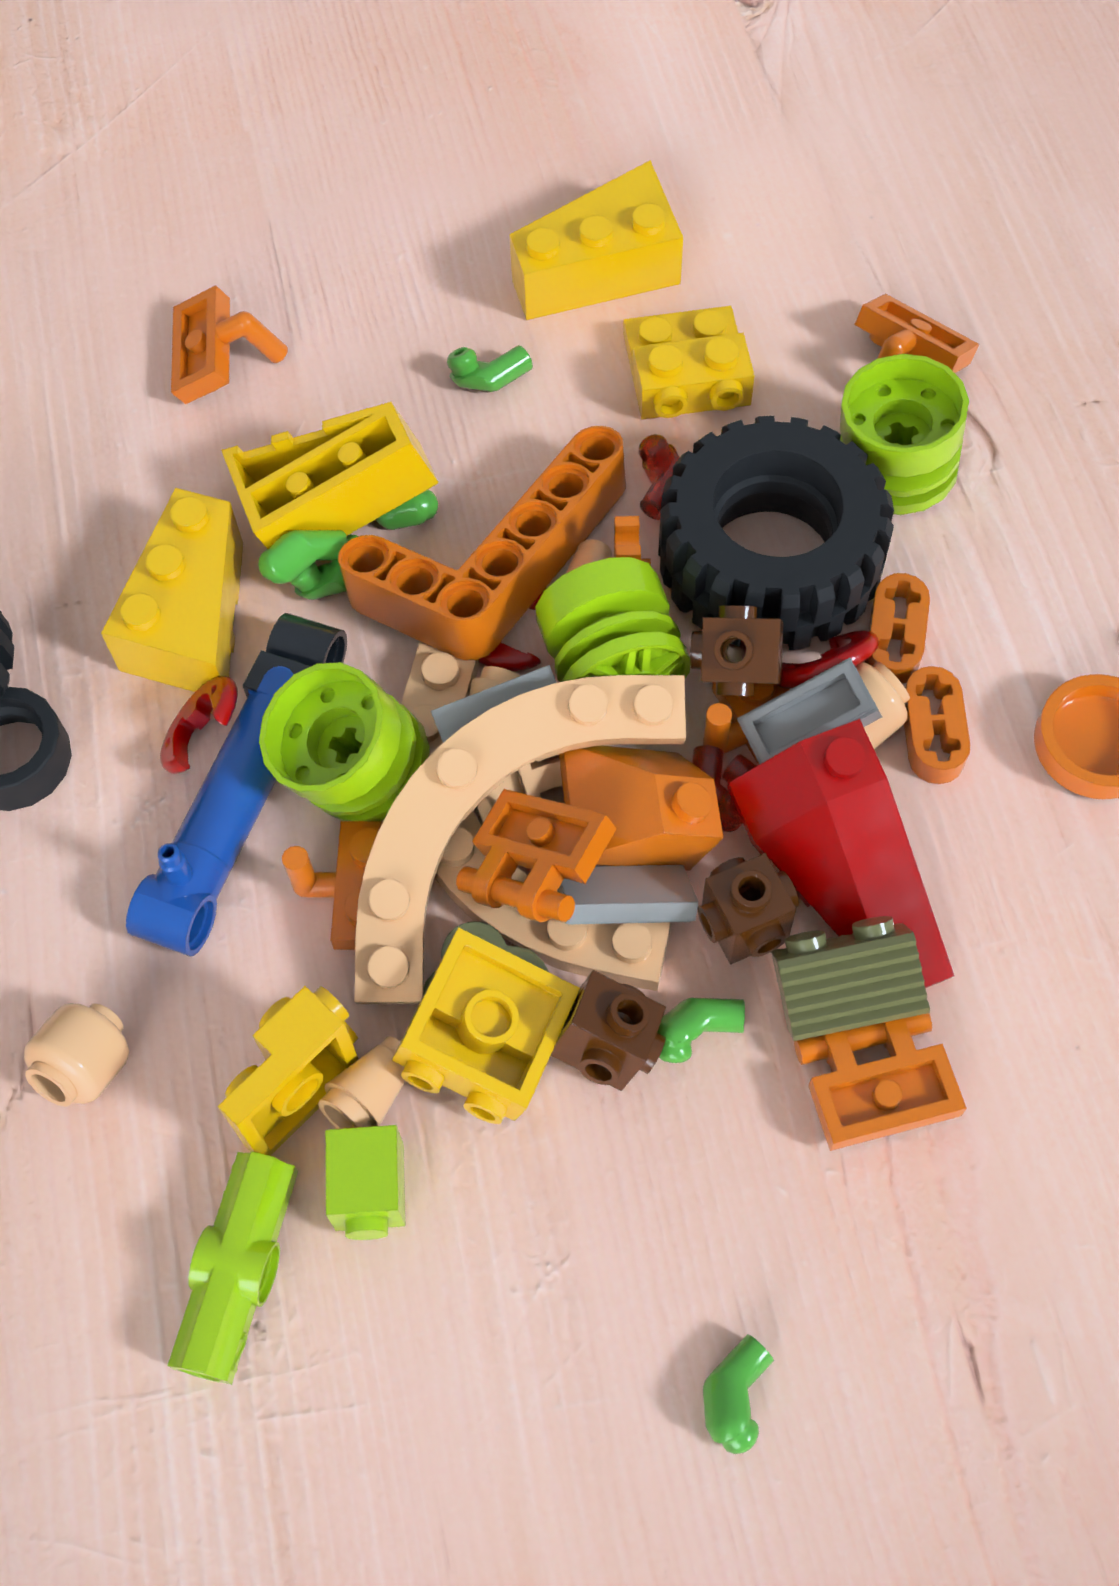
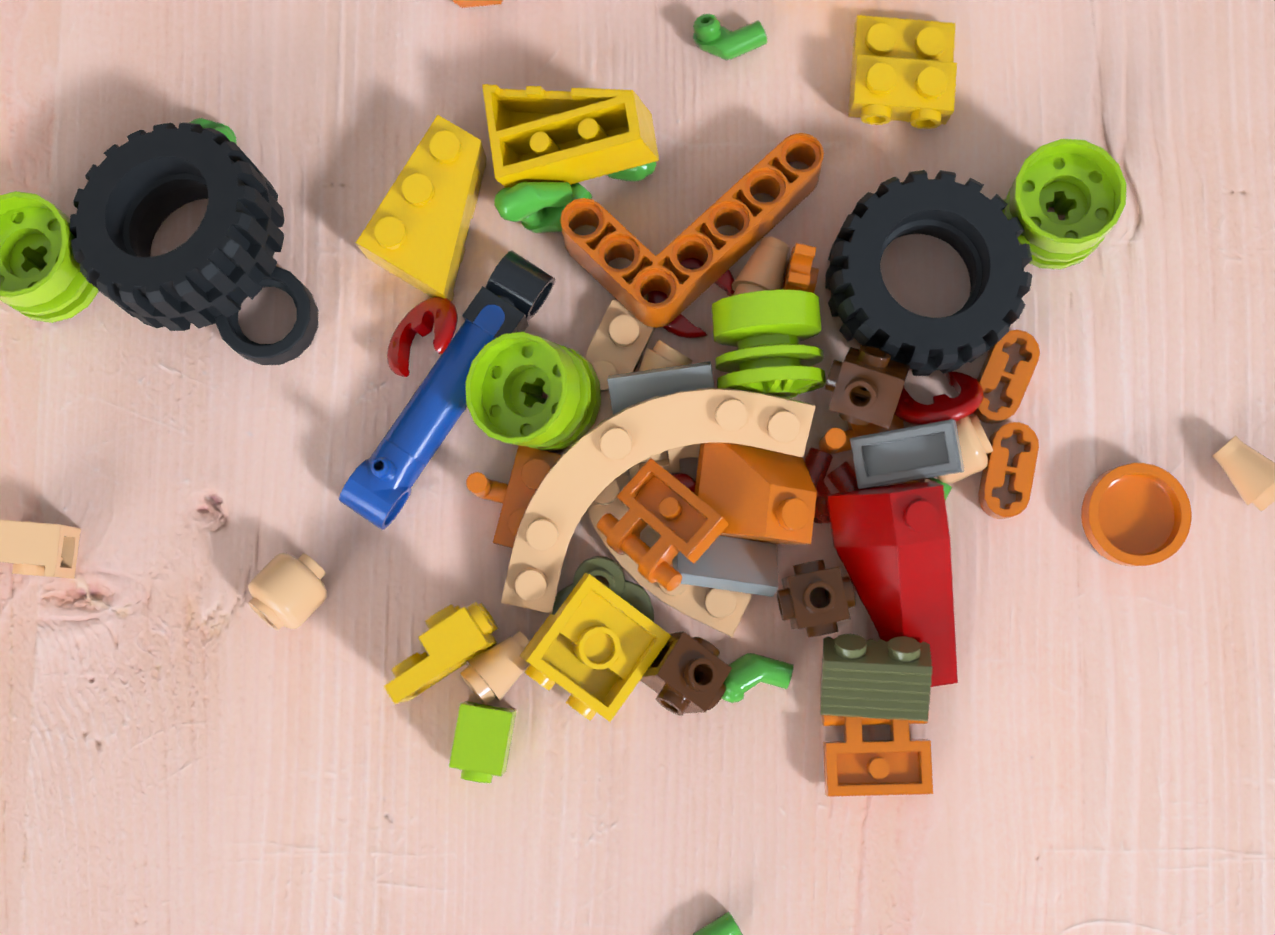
camera: 10 degrees right, 20 degrees up
(233, 1268) = (377, 780): lime piece -> none
(658, 464) = (854, 182): clear red arm -> none
(908, 331) = (1102, 95): orange plate -> none

